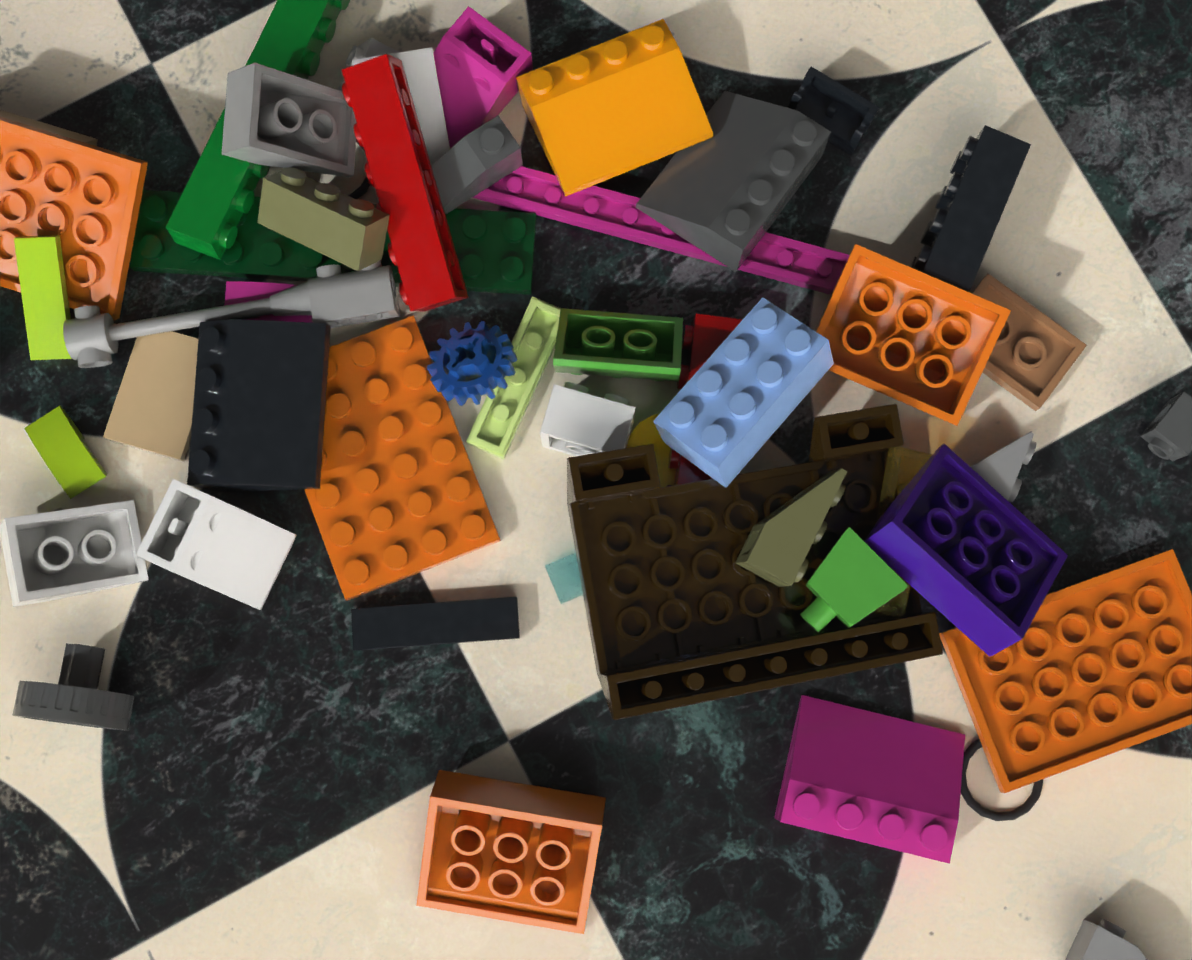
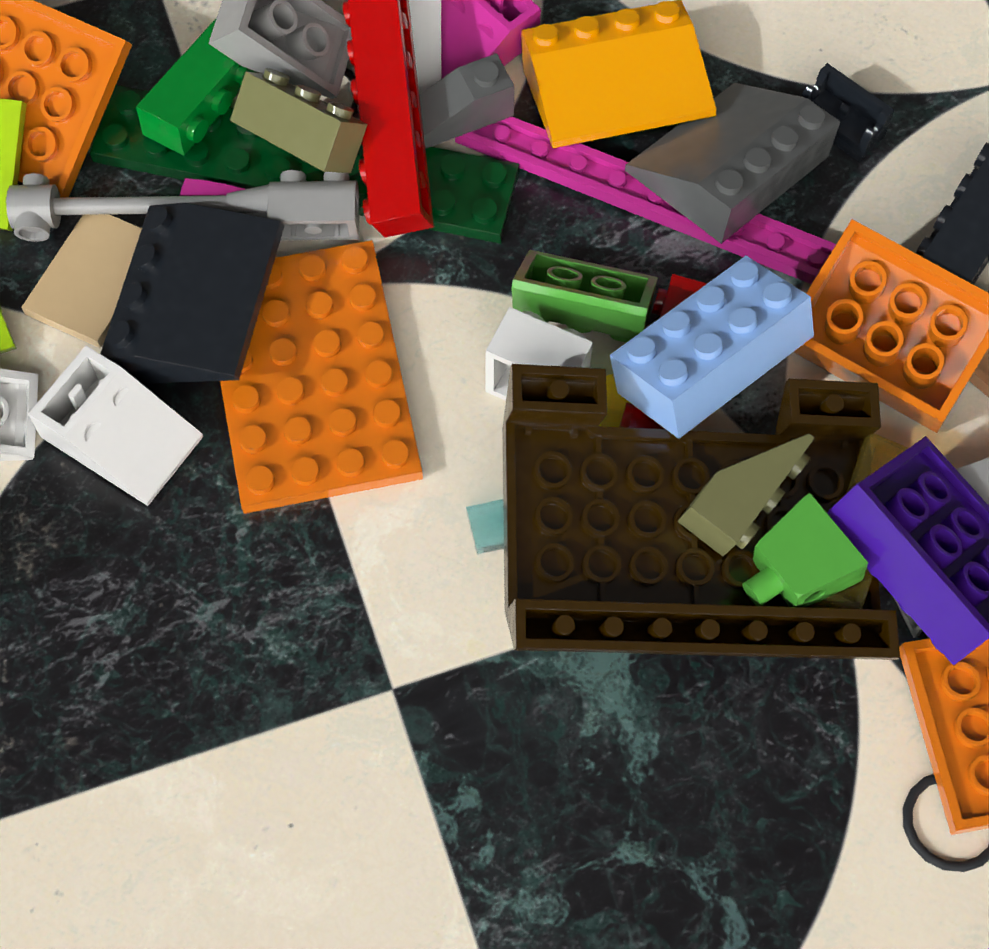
camera: 10 degrees right, 15 degrees down
(435, 623) = (335, 549): black tile -> none
(468, 363) = (425, 291): blue gear -> none
(510, 851) = (371, 806): orange slope -> none
(533, 346) = (466, 323): yellowish green tile -> none
(873, 779) = (803, 797): dark pink slope -> none

